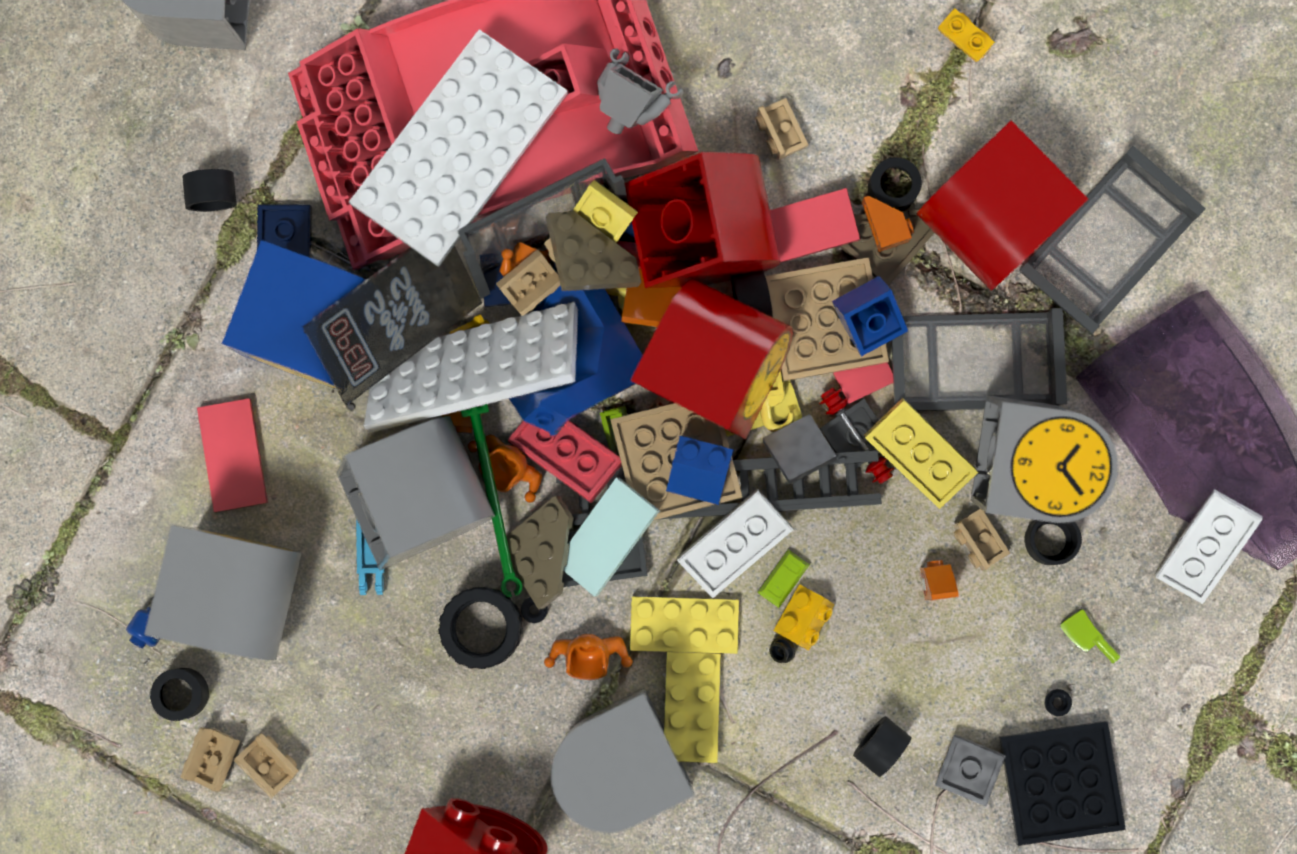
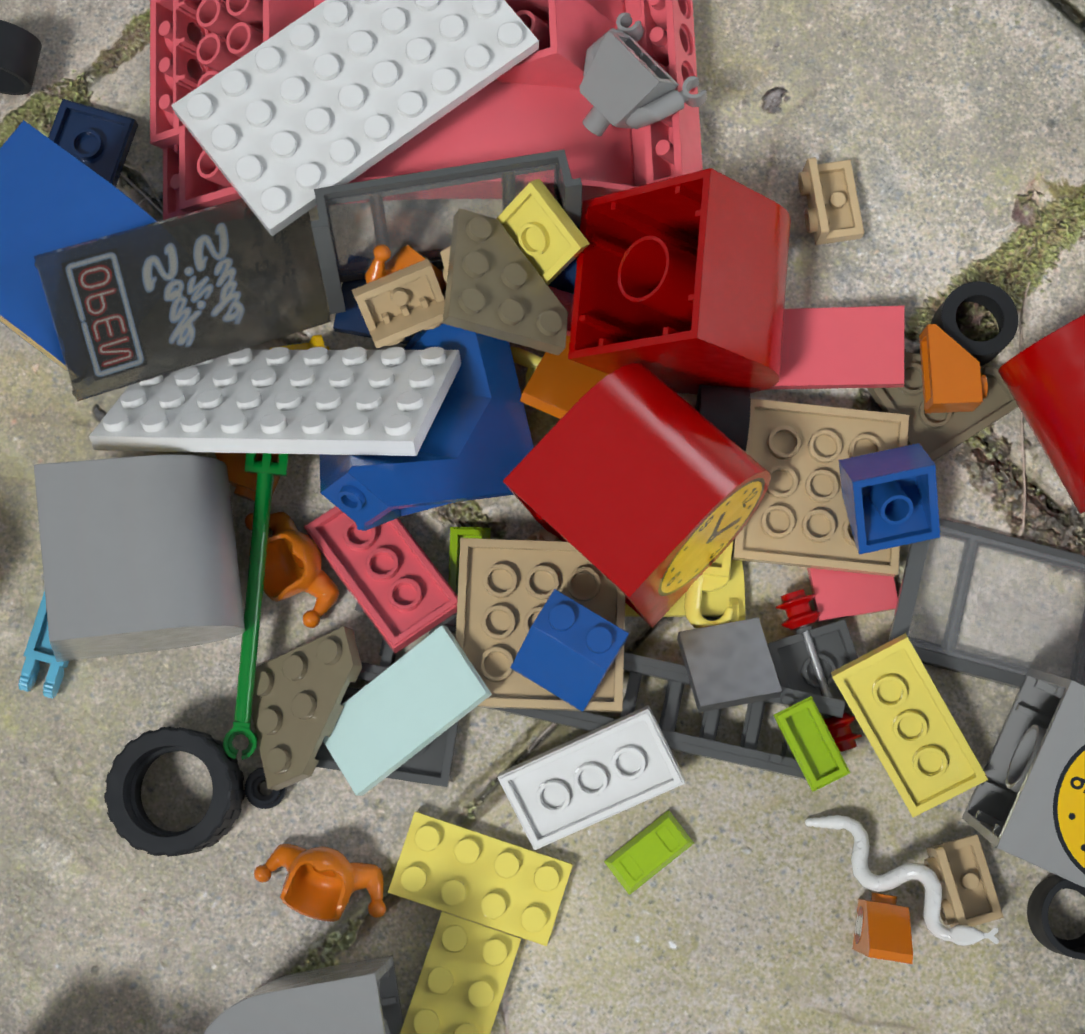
camera: 15 degrees right, 5 degrees down
(782, 650) = (615, 961): black plate -> none
(804, 617) = (663, 921): yellow bracket -> none
(863, 482) = (811, 744): none -> lime tile
(963, 556) = (959, 934): none -> white animal

